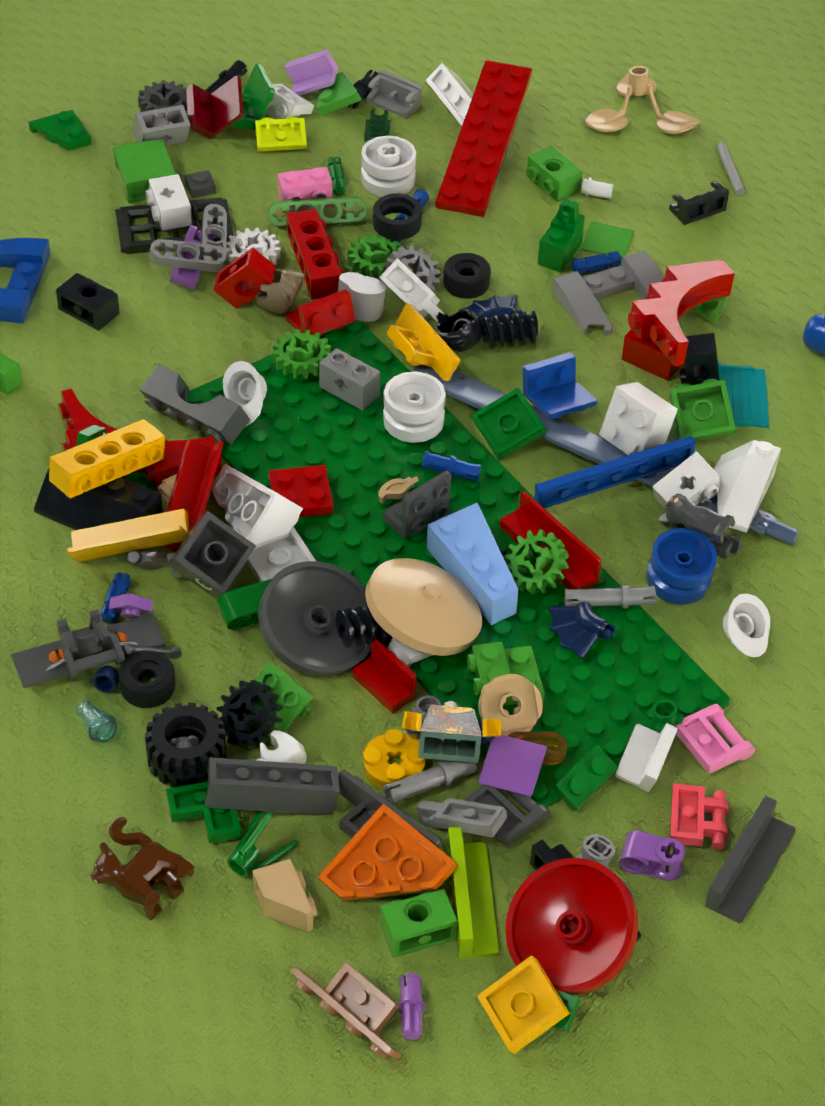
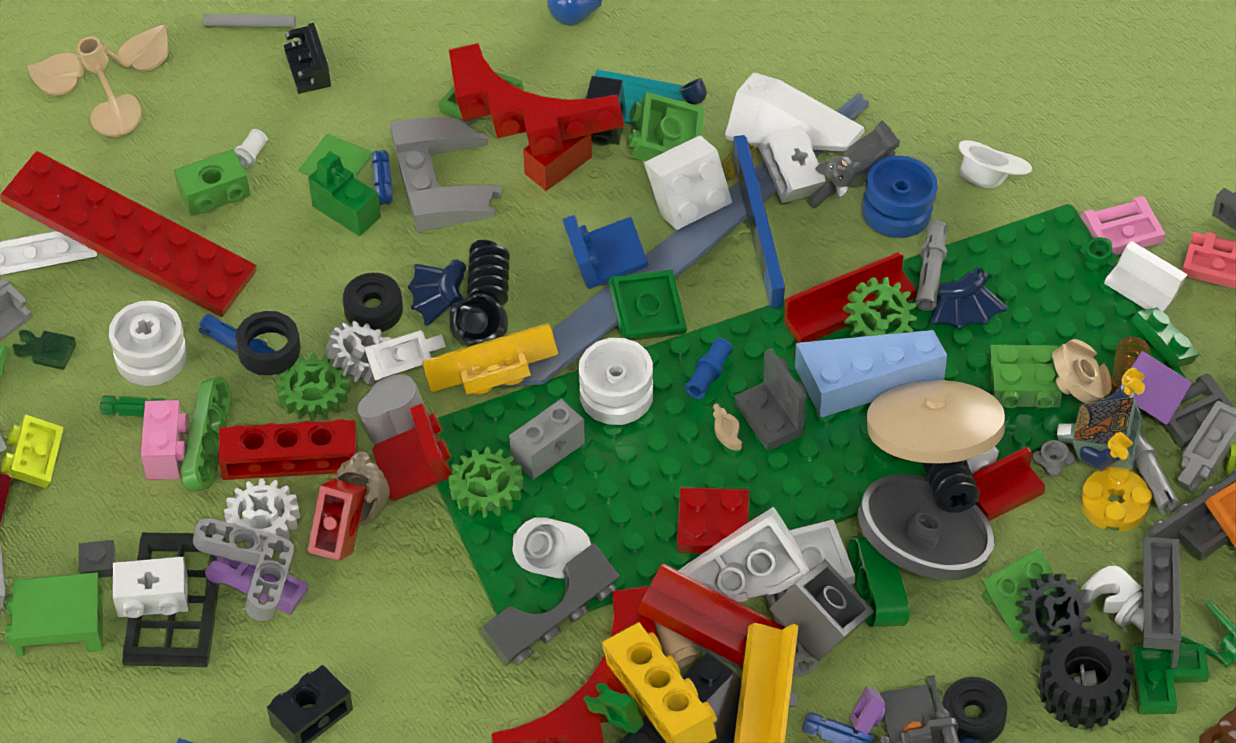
camera: 75 degrees left, 5 degrees up
(759, 428) = (694, 91): none -> dark blue hinge

